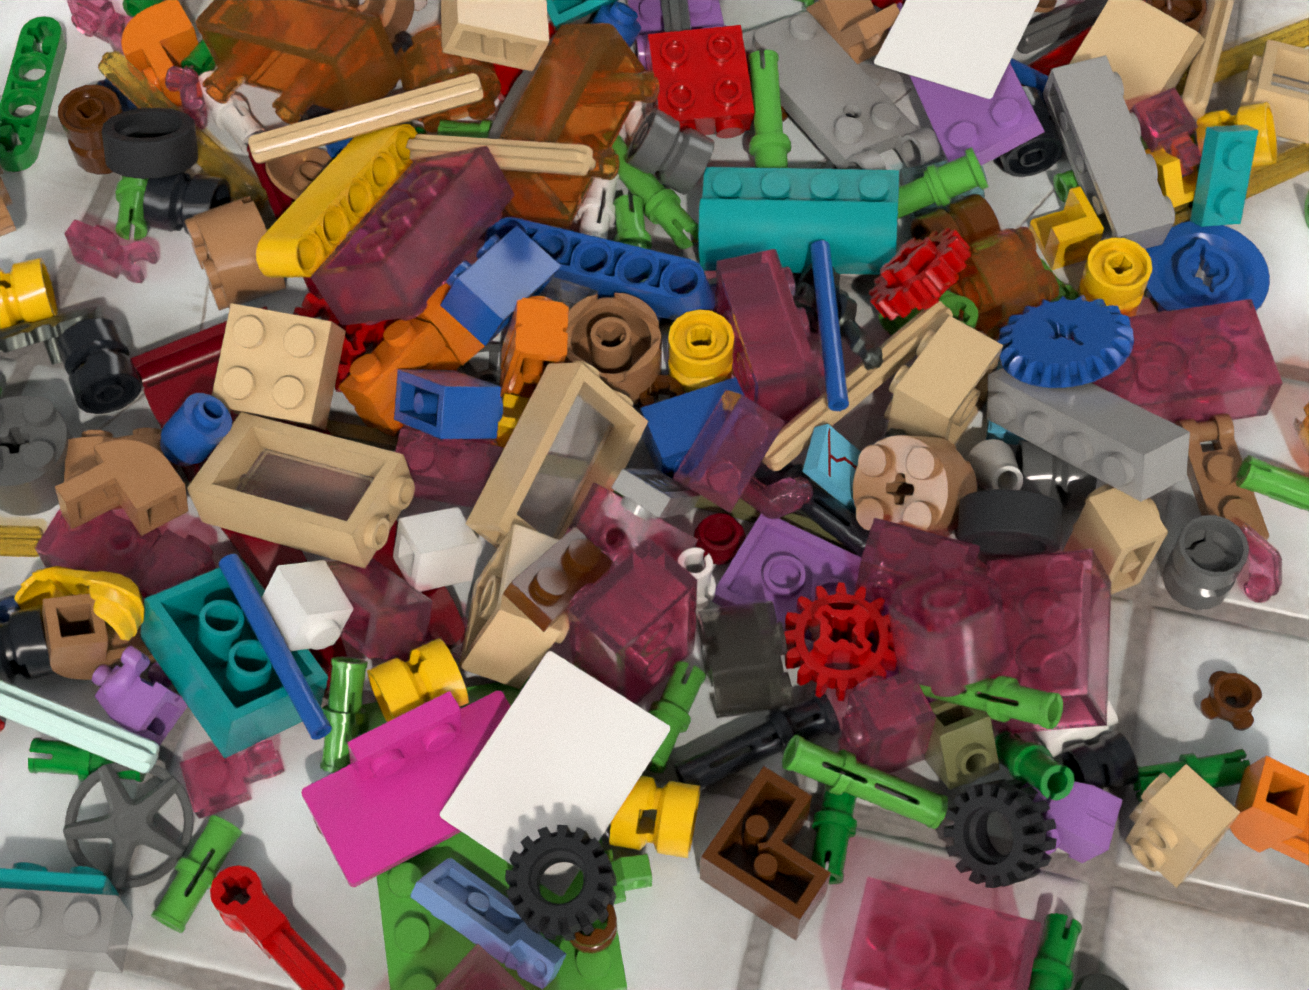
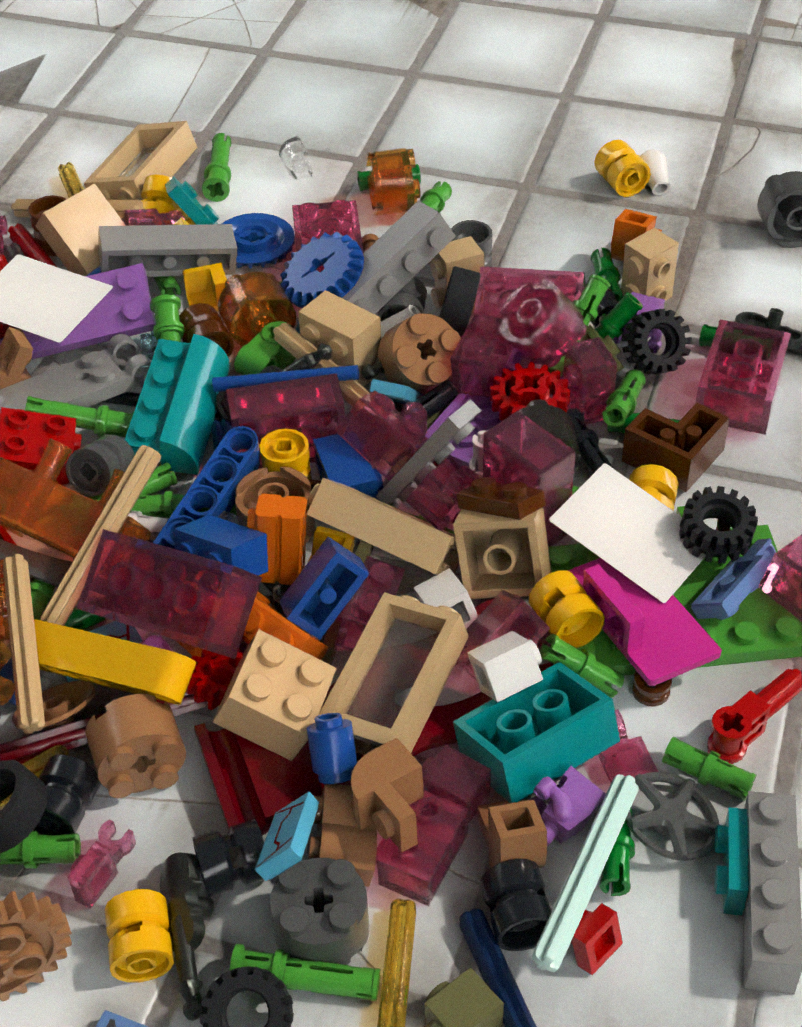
camera: 85 degrees left, 15 degrees down
(88, 401) = (287, 837): none -> medium azure tile
(115, 595) = (462, 870): yellow piece -> none
(275, 647) = (538, 684): blue piece -> none
(919, 273) = (254, 330): red gear -> none
(1117, 274) = (260, 255): yellow wheel -> none
(1238, 687) = (556, 257): reddish brown plate -> none

